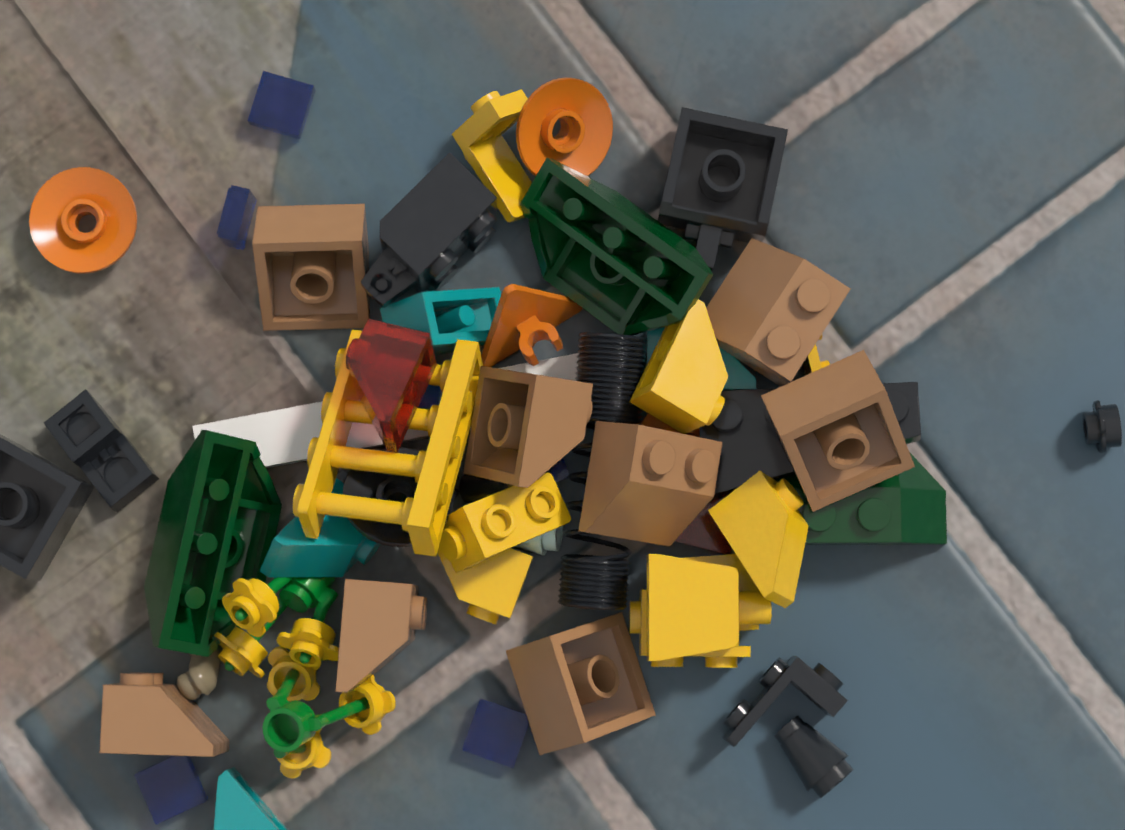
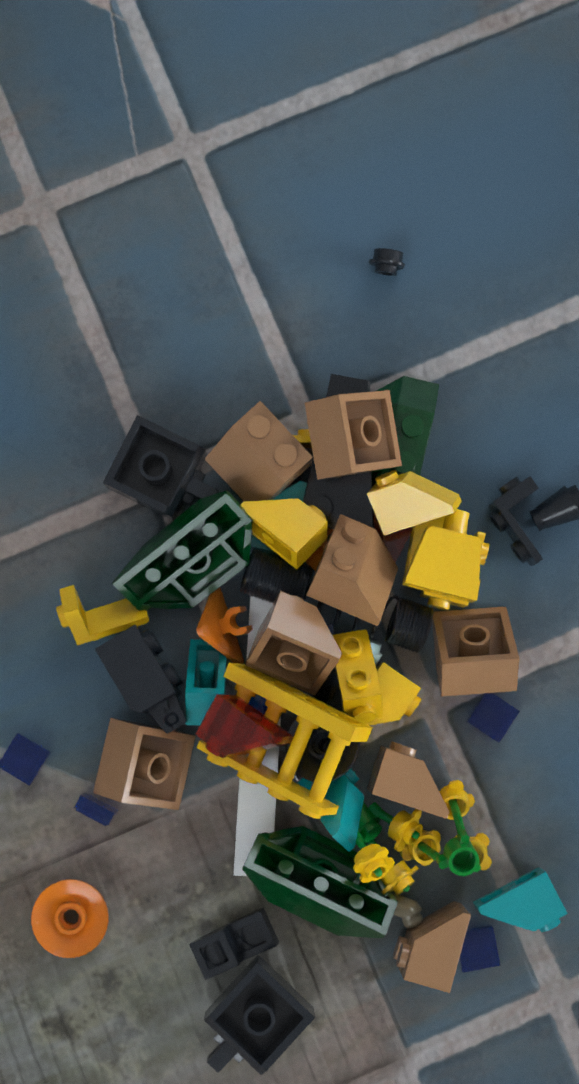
camera: 80 degrees left, 0 degrees up
(584, 126) = (97, 554): orange dish -> none

